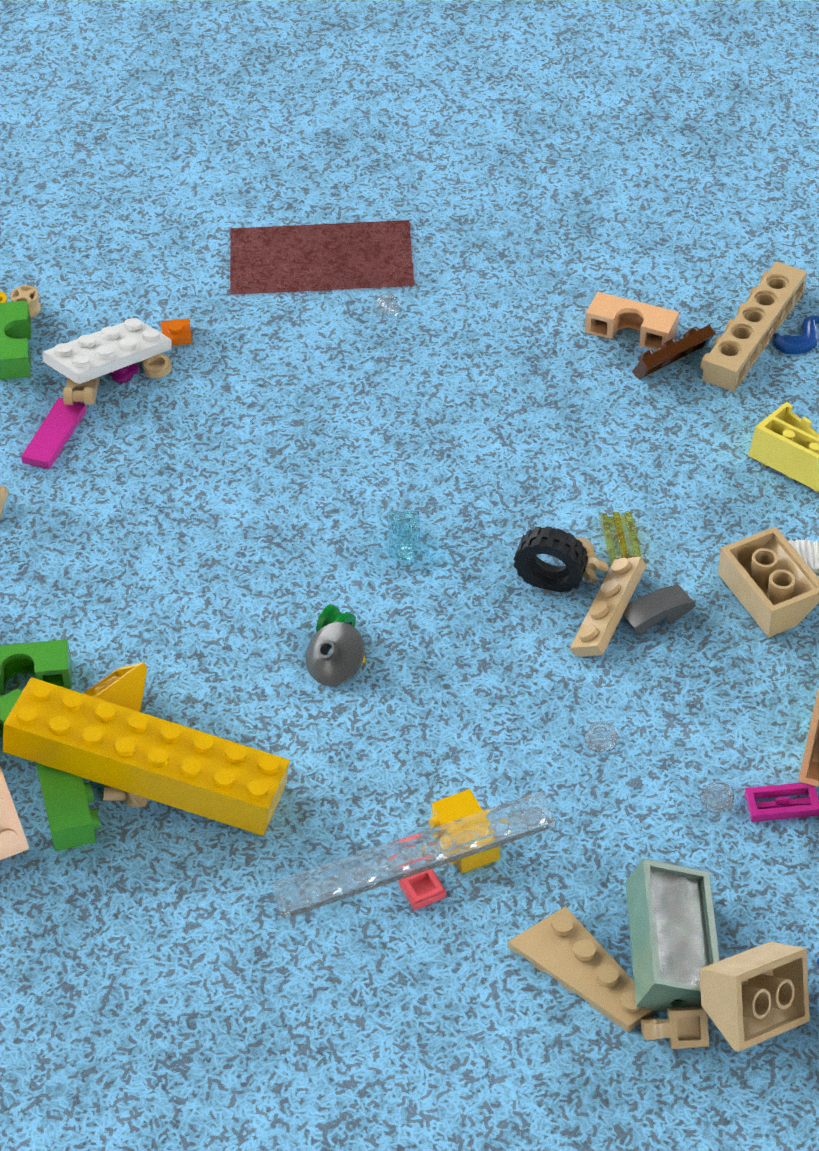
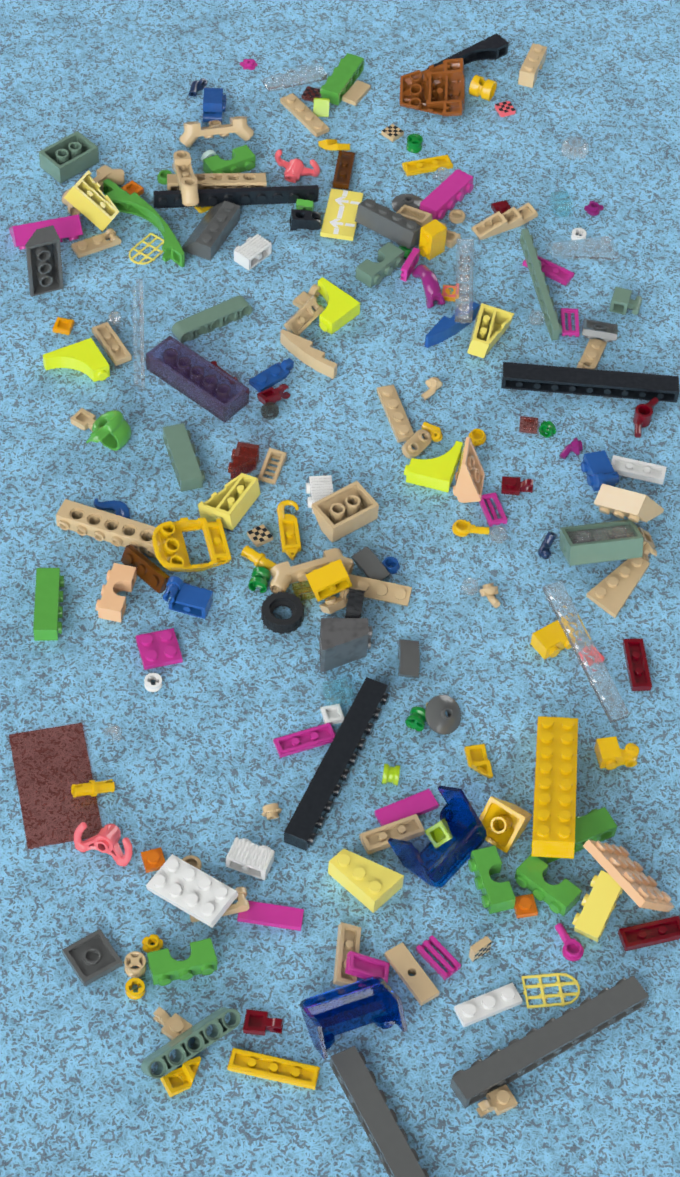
camera: 105 degrees left, 5 degrees up
(51, 267) = (92, 957): none -> dark grey plate
(51, 321) = (158, 943): none -> yellow plate
(68, 522) = (365, 879): none -> light yellow wedge
(71, 608) = (440, 864): none -> clear blue windscreen
(119, 612) = (439, 833): none -> lime slope
(138, 569) = (403, 829): none -> tan plate
(143, 415) = (250, 858): none -> white brick
(180, 595) = (415, 804): none -> dark pink tile
(204, 866) = (611, 756): none -> yellow brick
(210, 285) = (106, 842): none -> coral piece
(216, 446) = (271, 811): none -> tan plate
(241, 578) = (391, 774): none -> lime wheel
(244, 694) = (478, 760): none -> yellow slope
(282, 522) = (336, 764): none -> black brick
(298, 279) = (92, 788): none -> yellow pin
(333, 498) = (304, 740): none -> dark pink tile
(372, 533) = (332, 714): none -> white tile
(389, 951) = (637, 665): none -> dark red plate
(462, 629) = (408, 658): none -> dark grey slope
(467, 344) = (158, 682): none -> white bush
(489, 537) = (343, 641): none -> flat silver slope
(527, 362) = (159, 649): none -> dark pink plate
(573, 511) = (282, 625): none -> black tyre
(588, 763) = (489, 591): none -> tan plate
(611, 390) = (188, 598): none -> blue hinge
(617, 536) = (329, 580): none -> yellow brick
(618, 255) = (47, 604): none -> bright green brick
(640, 473) = (259, 579): none -> green wheel
(648, 504) = (284, 574): none -> tan plate
(661, 631) = (391, 561): none -> blue plate
(678, 858) = (544, 551): none -> dark blue arm
(684, 479) = (258, 559): none -> yellow pin
(701, 370) = (171, 547): none -> yellow slope
(736, 748) = (463, 528): none -> yellow plate
(737, 488) = (259, 535): none -> tan tile
(743, 518) = (288, 530): none -> yellow plate

